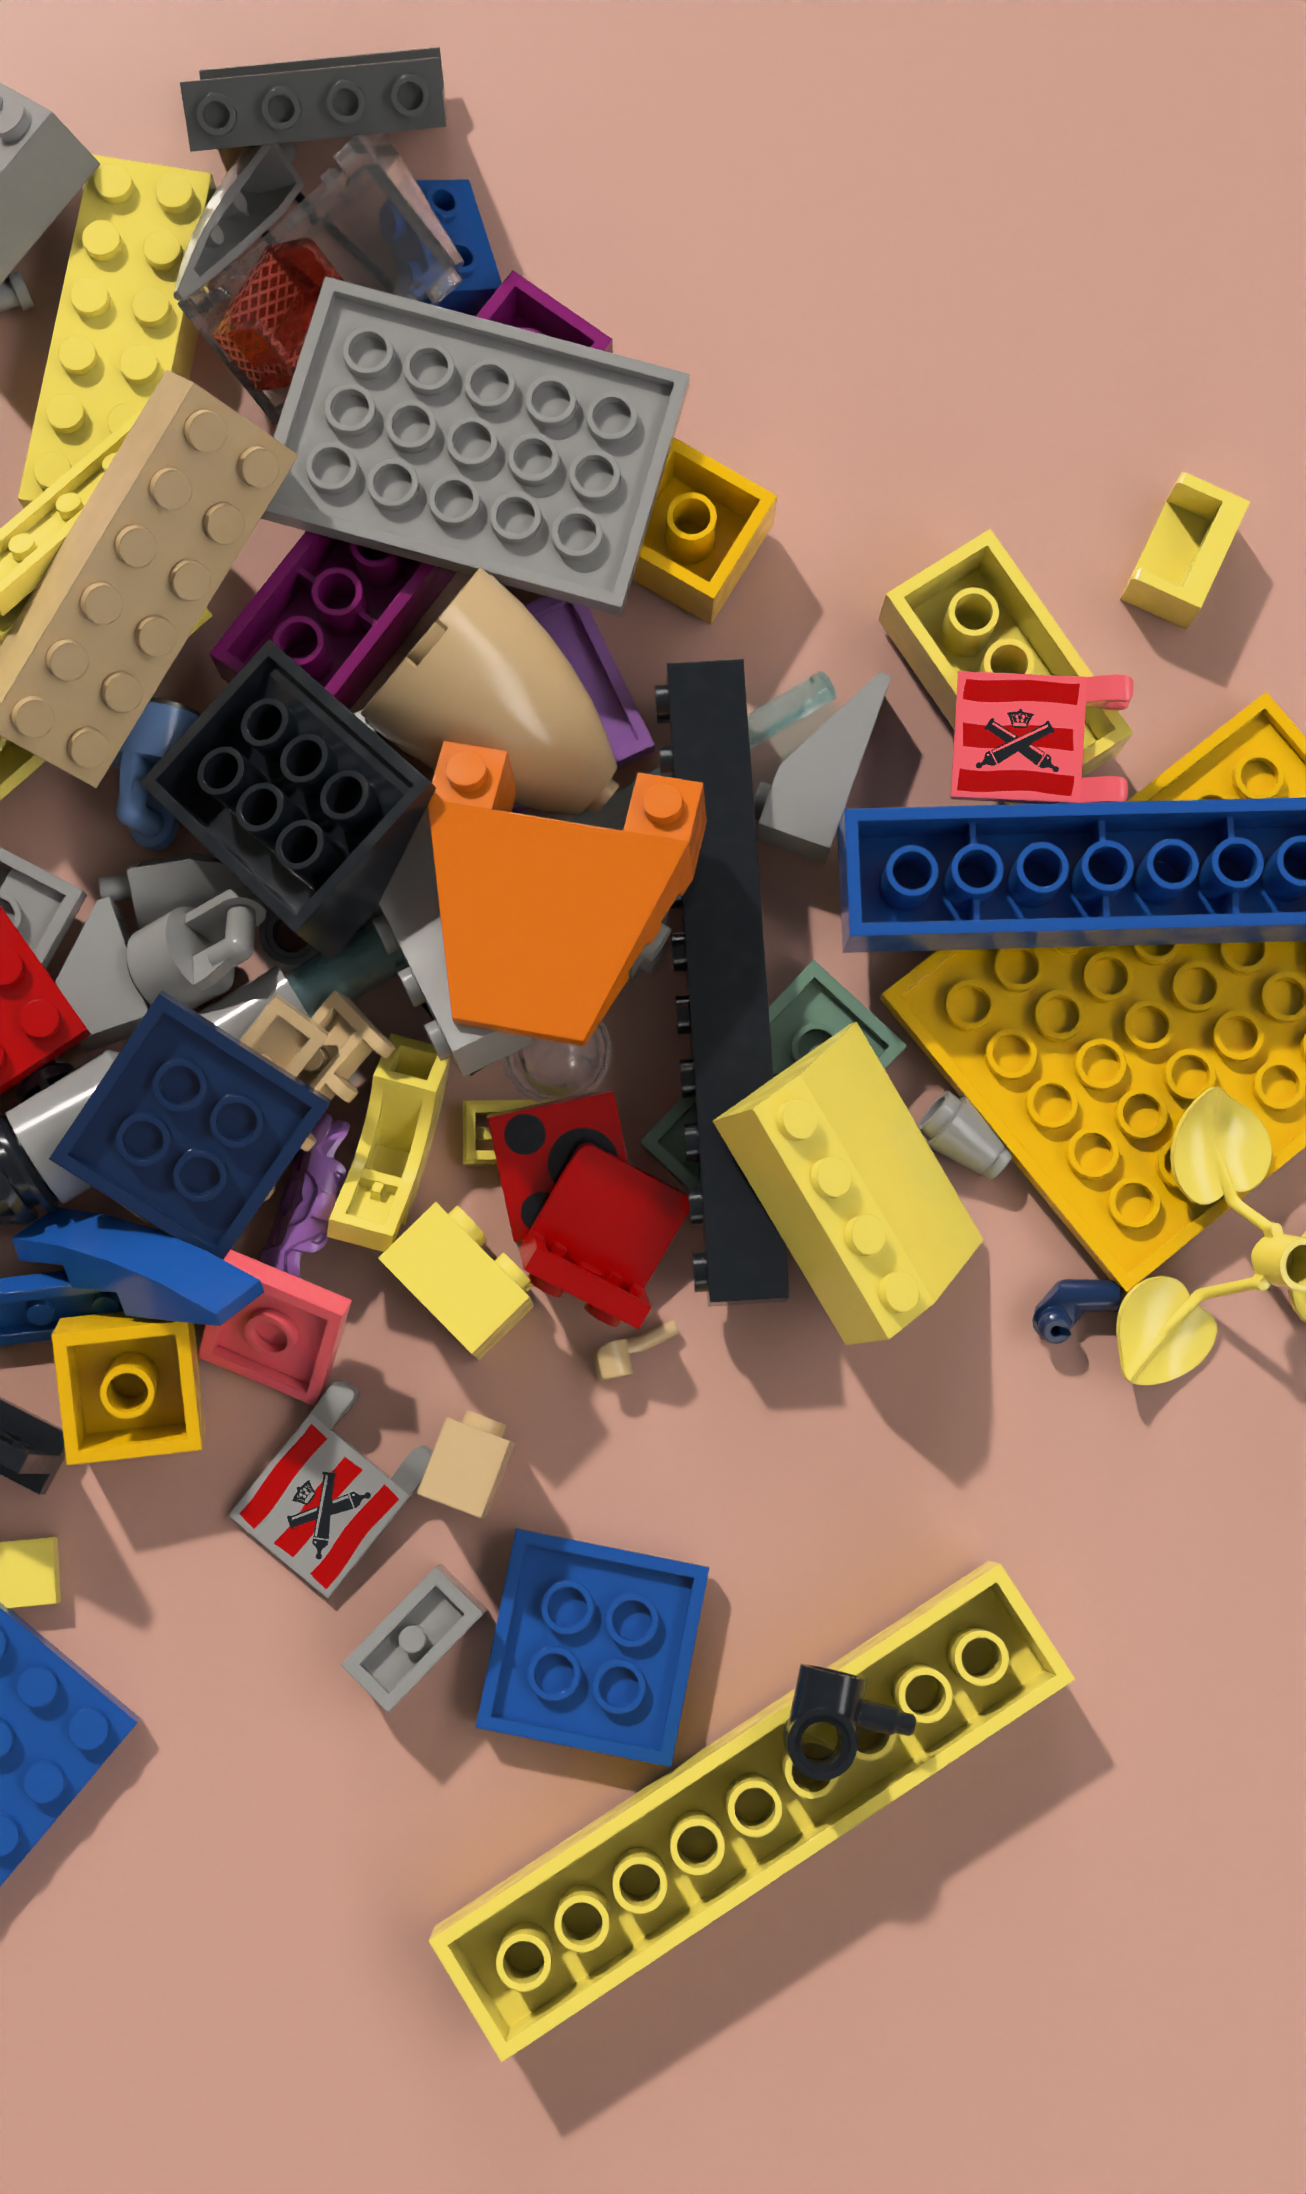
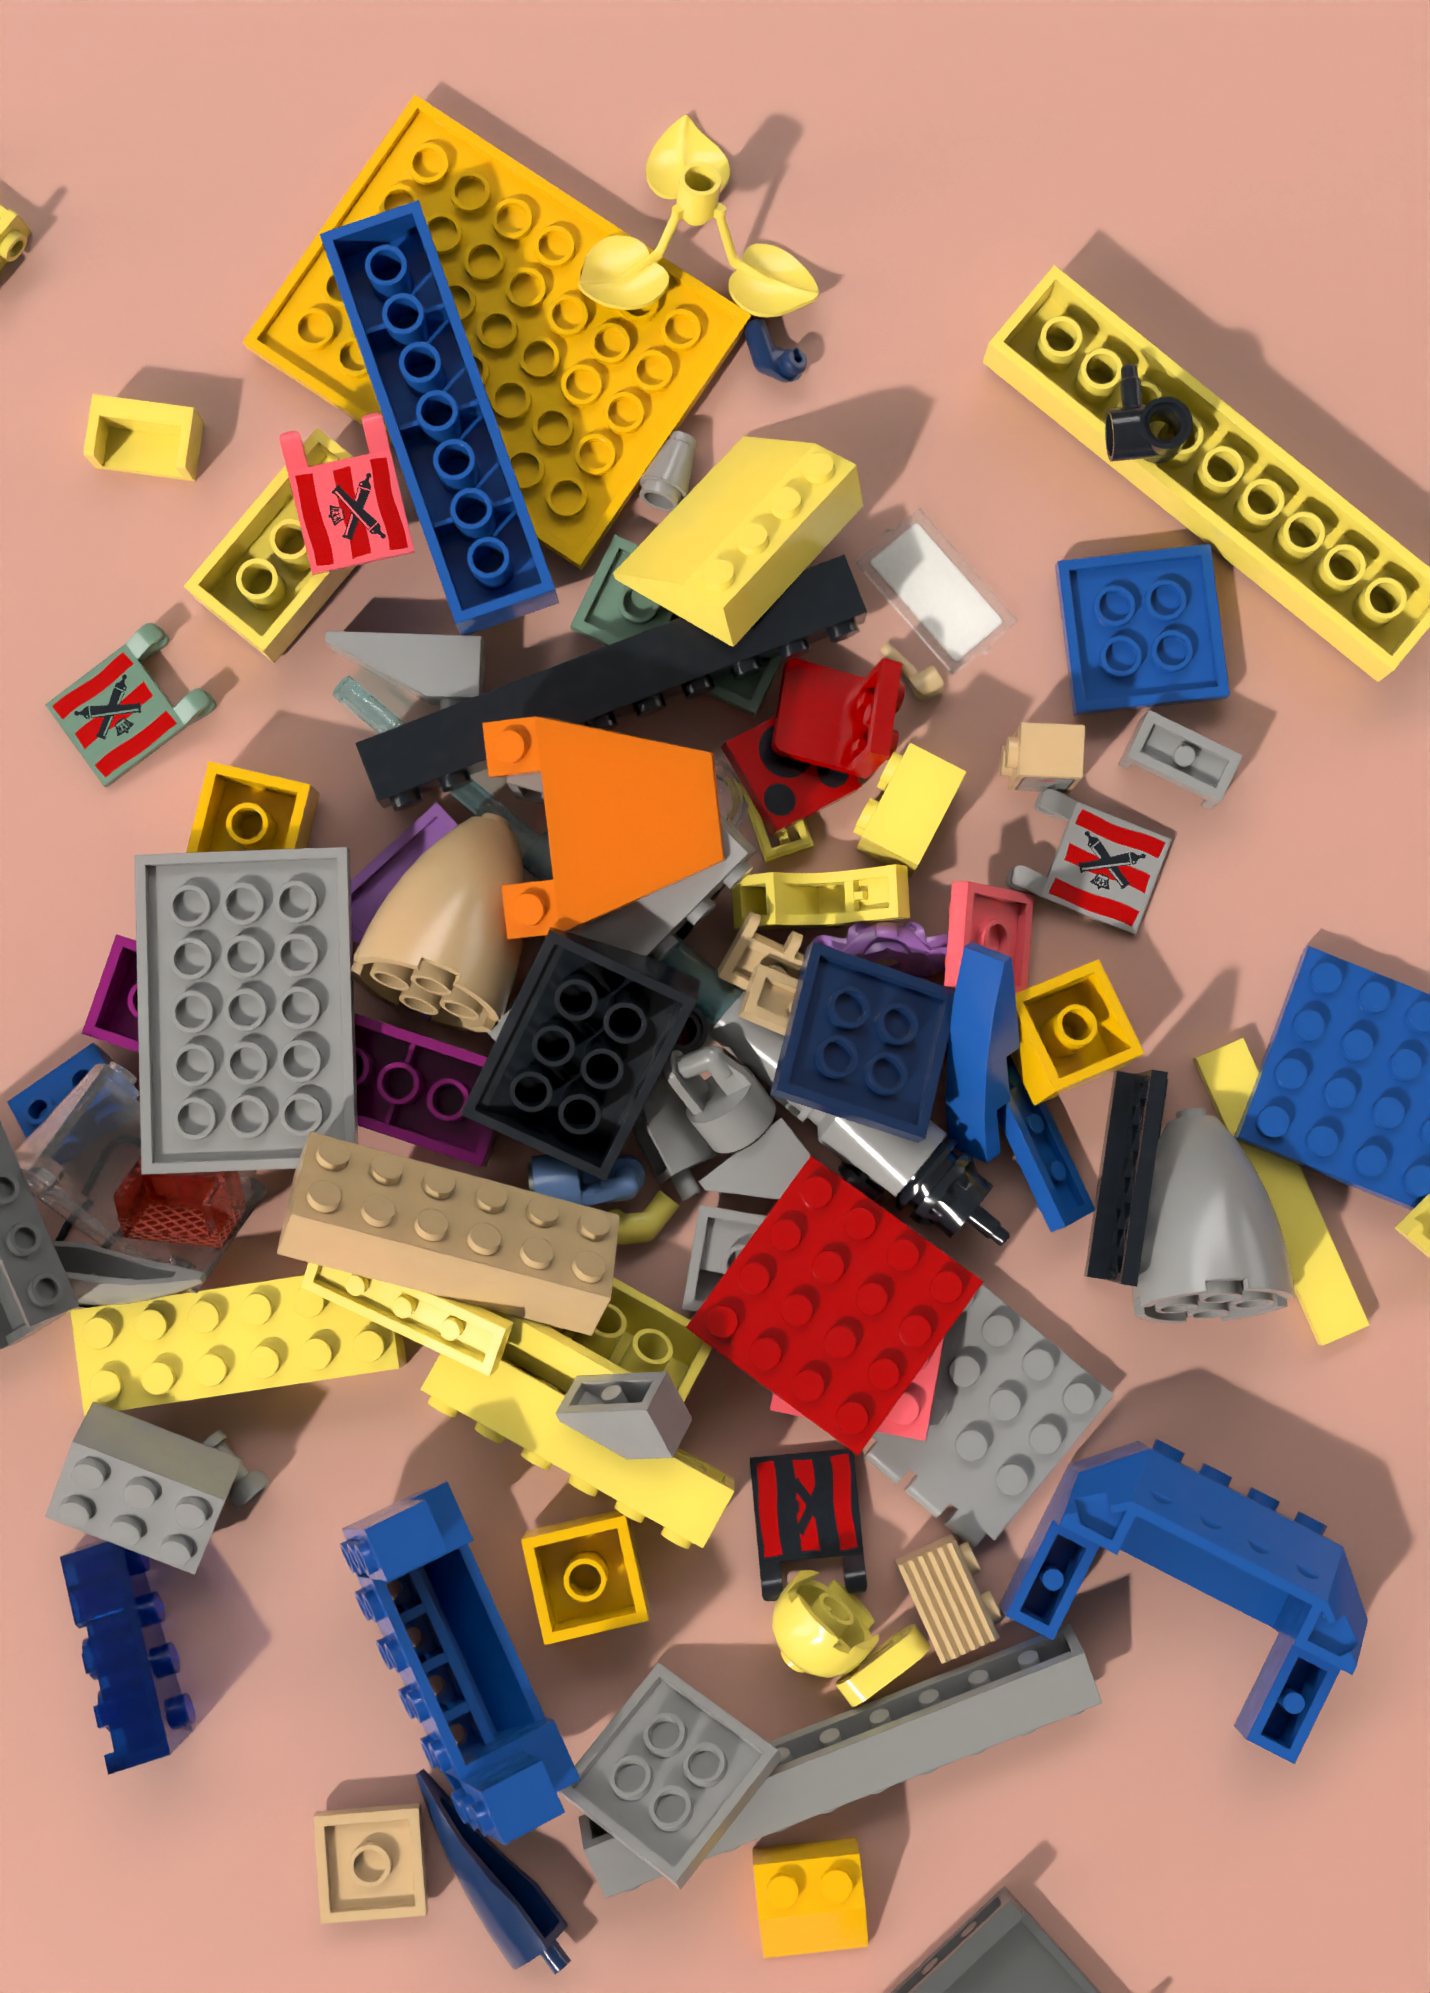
camera: 100 degrees left, 5 degrees up
(90, 825) = (645, 1225): none -> light yellow arm
(723, 1412) = (936, 591): none -> clear piece
(875, 437) = (120, 712): none -> flag

